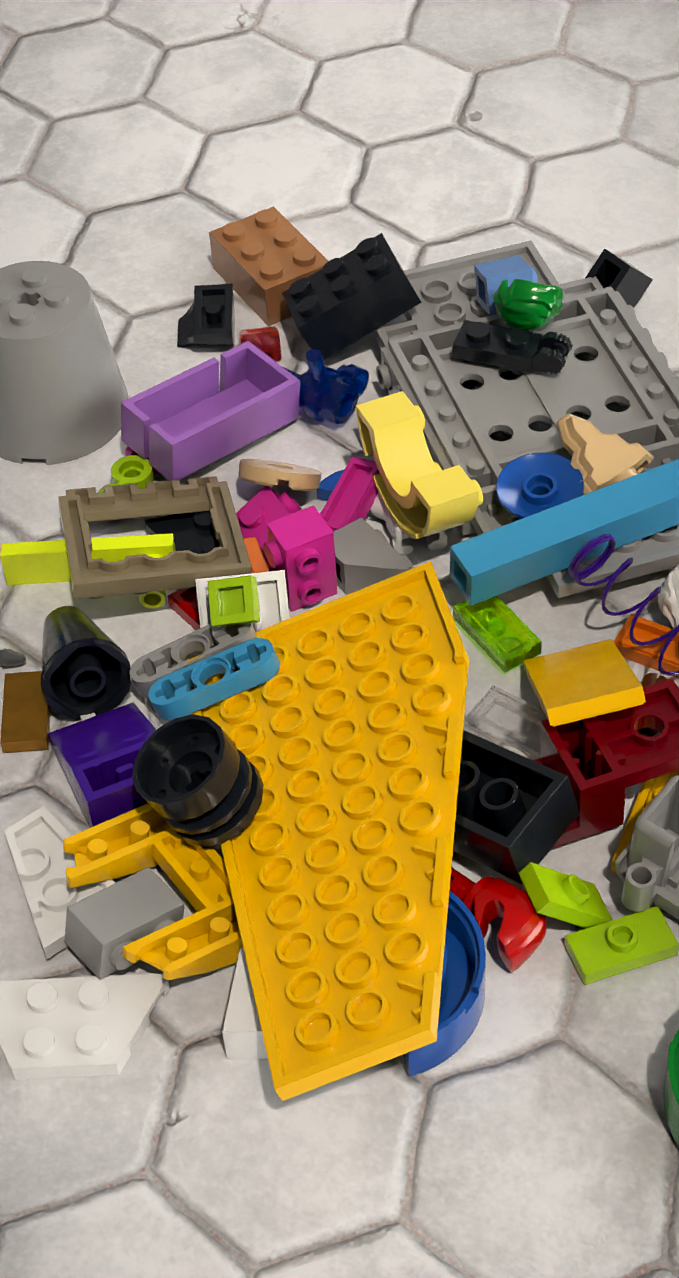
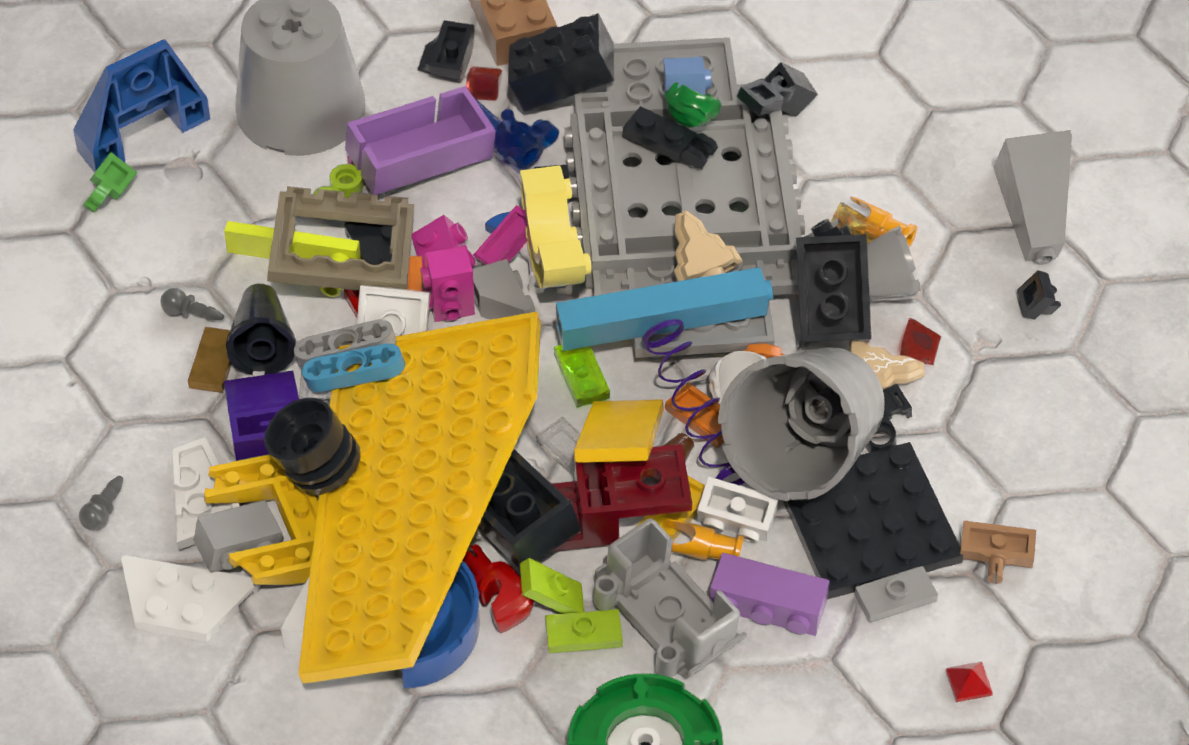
camera: 10 degrees right, 5 degrees up
(234, 601) = (382, 311): lime tile -> none
(279, 473) = (460, 205): tan tile -> none
(537, 483) = (644, 255): blue dish -> none
(601, 284) = (765, 97): none -> black plate

